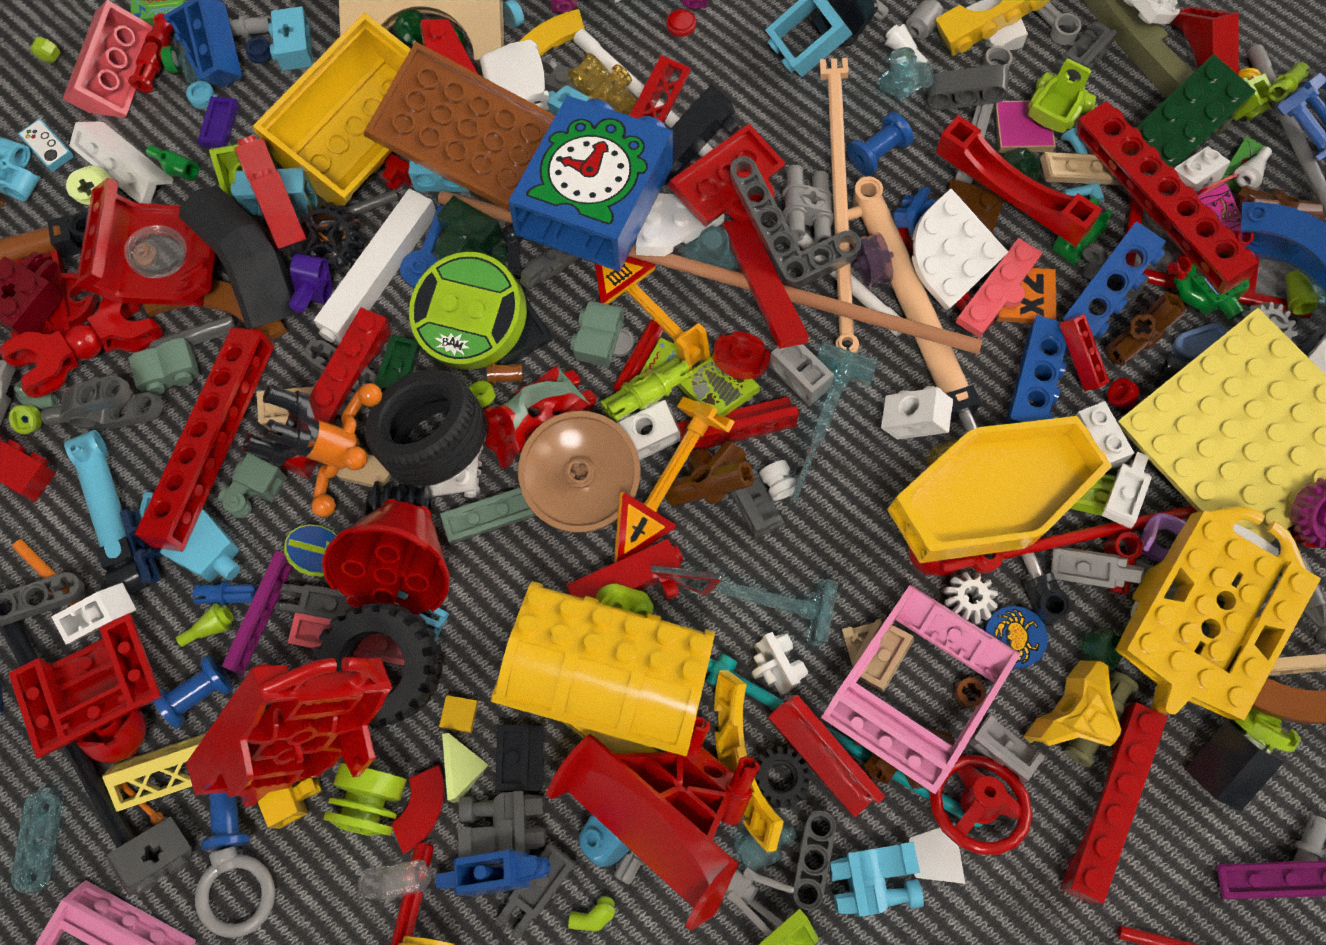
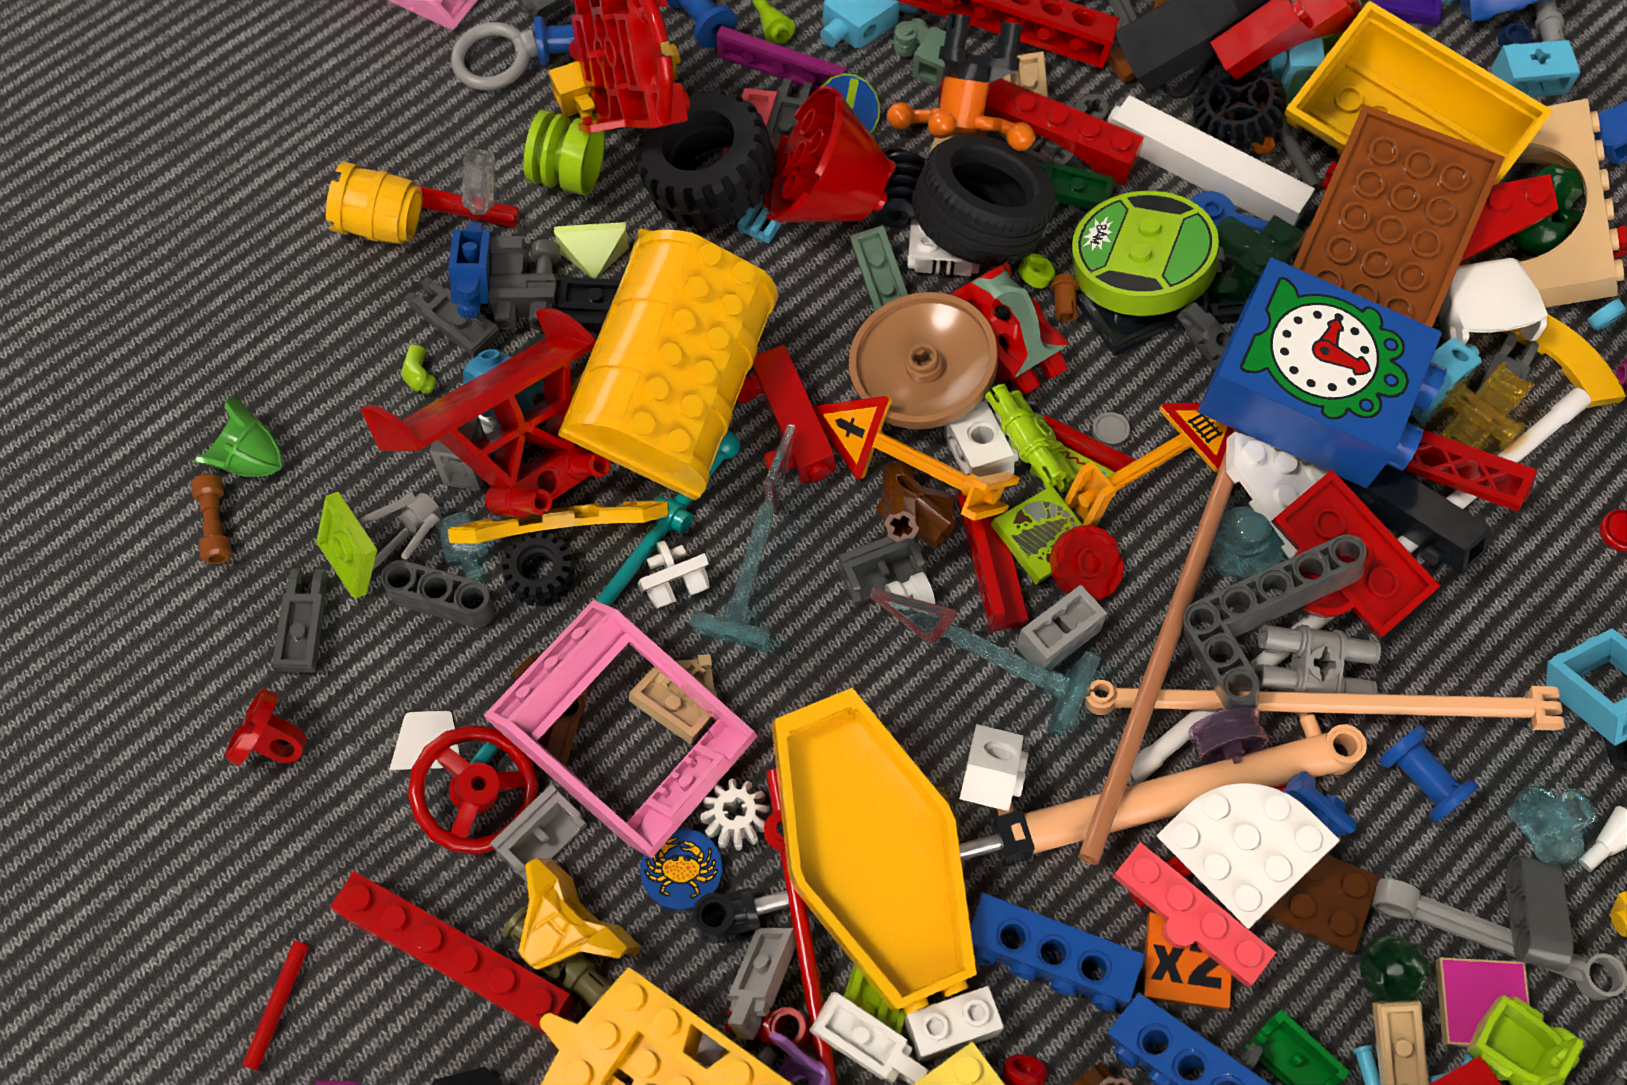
camera: 90 degrees right, 5 degrees down
(224, 593) = (805, 30): blue axle -> none
(310, 281) = (1183, 91): dark purple beam -> none
(423, 809) = (546, 212): red tile -> none
(597, 333) = (1118, 399): sand green brick -> none
(625, 598) = (758, 407): lime plate -> none
(765, 284) = (1168, 583): red tile -> none
(824, 755) = (554, 613): red fence -> none
(867, 876) = (407, 649): medium azure hips -> none
(962, 699) = (607, 792): dark orange bush -> none
(1062, 213) = (1356, 941): red arch -> none
(1084, 352) = (1085, 1016): red piece -> none
(1101, 647) = (655, 967): clear green cone -> none

